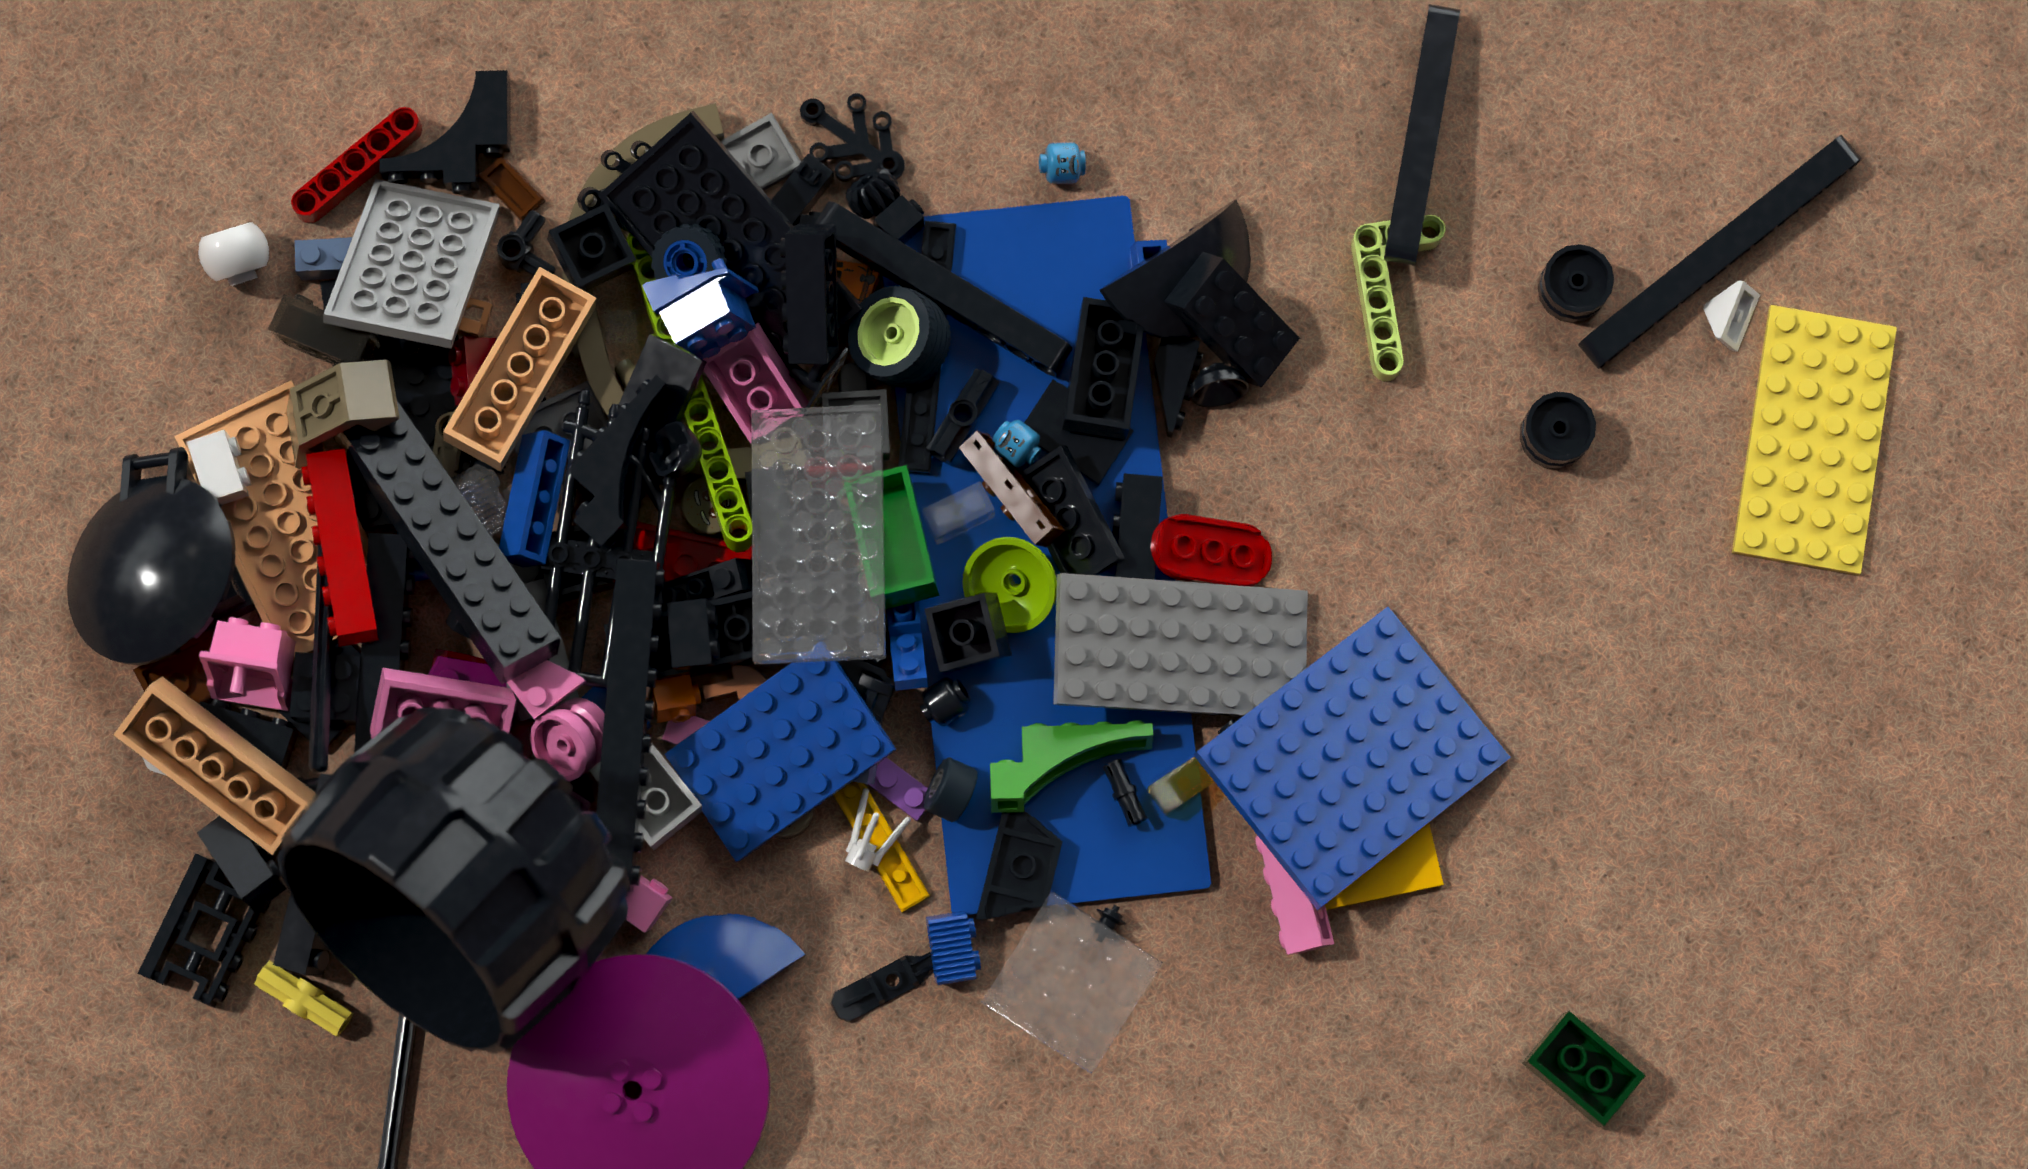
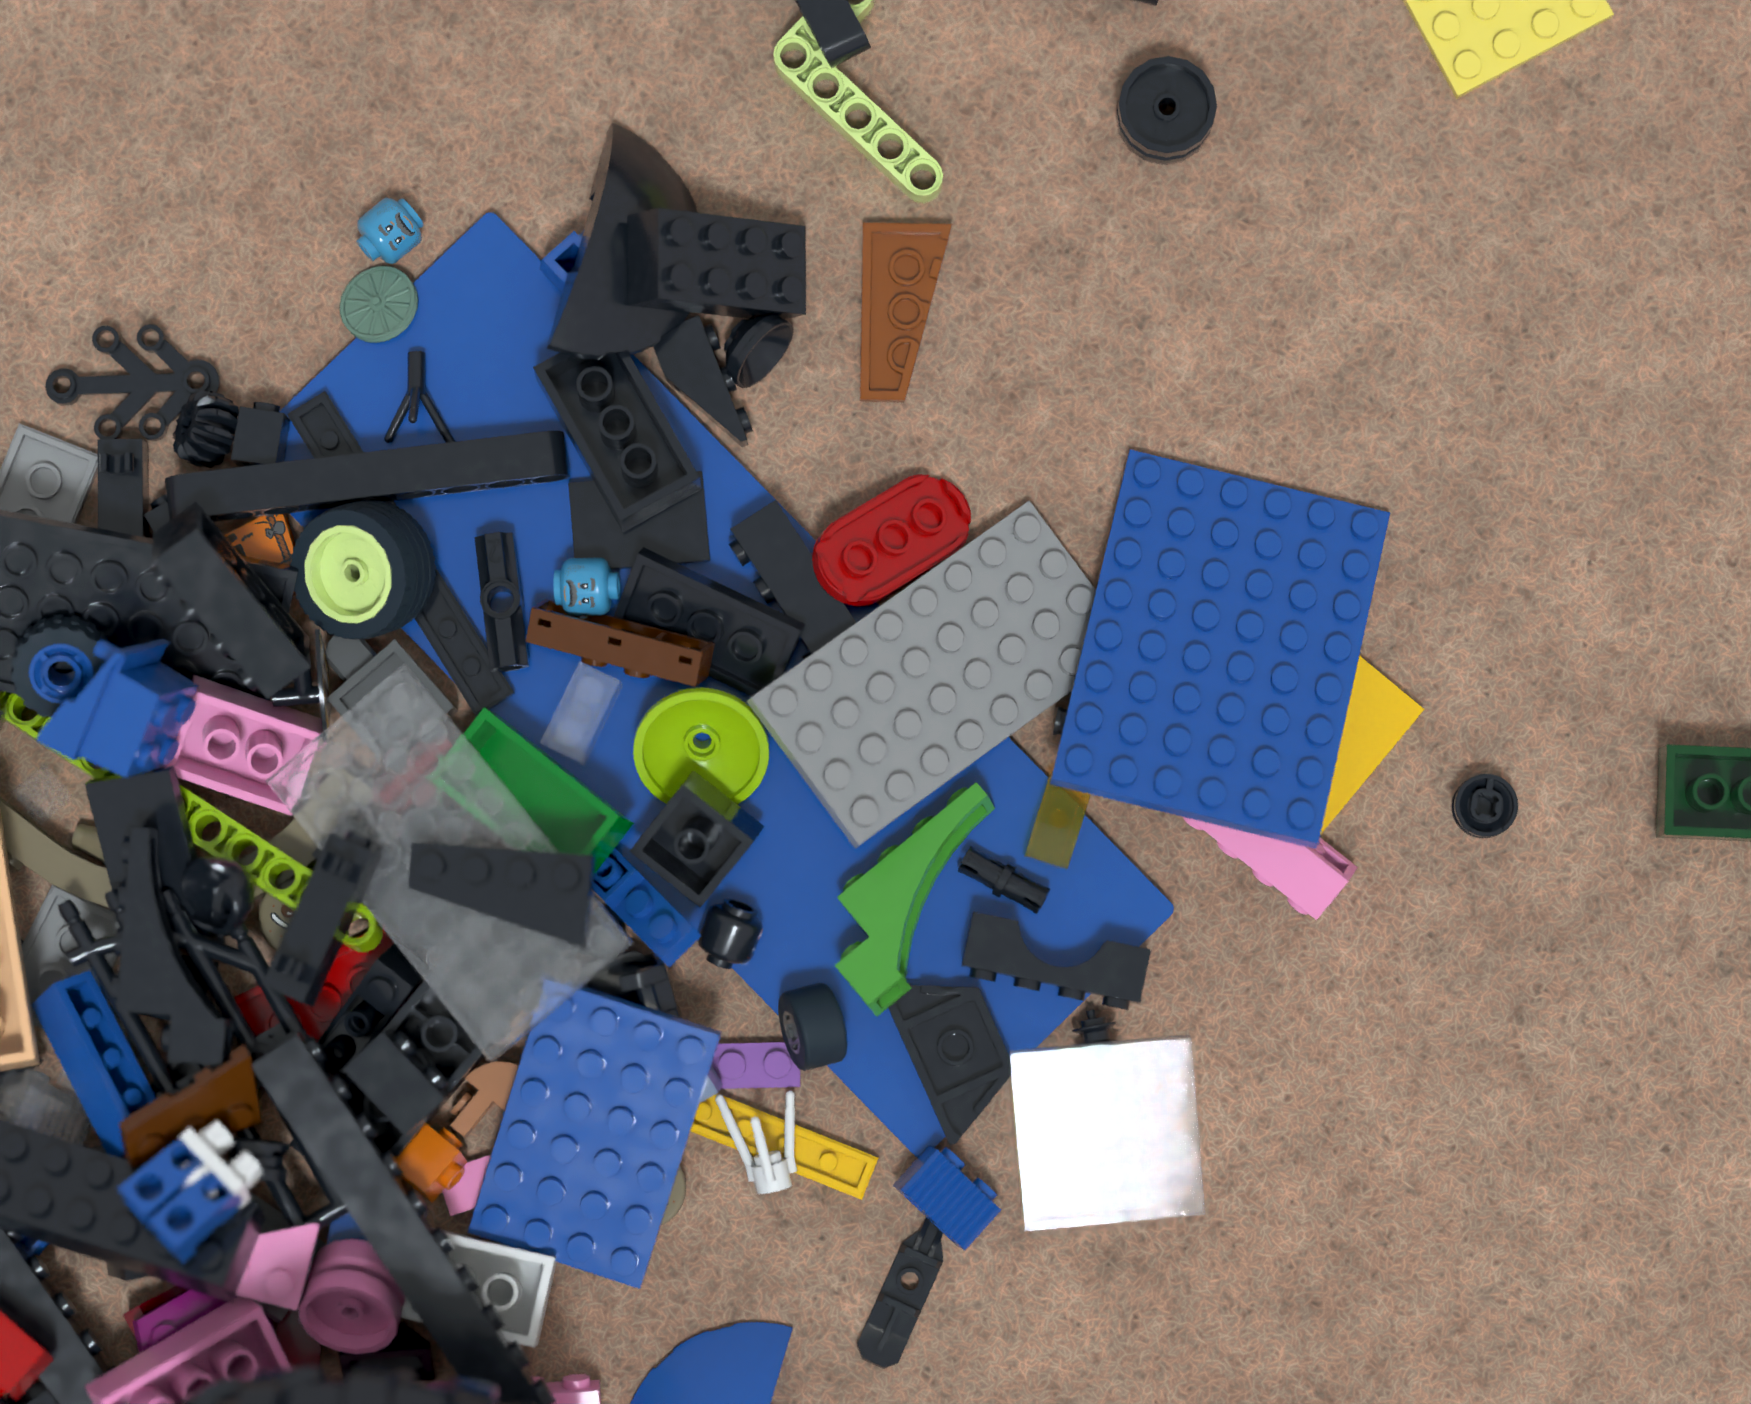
camera: 35 degrees left, 5 degrees up
(529, 599) = (190, 1189): none -> blue hips
(570, 564) = (219, 1096): none -> reddish brown wing
(579, 615) = (267, 1153): none -> black wheel
(722, 508) = (322, 918): none -> black brick
(847, 577) = (518, 886): none -> black wing
(1008, 263) = (415, 393): none -> black plant
(1024, 199) = (378, 304): none -> sand green wheel
(1146, 893) = (1113, 972): none -> black arch
(1323, 416) = (897, 292): none -> dark orange wing
(1435, 966) = (1484, 806): none -> black wheel

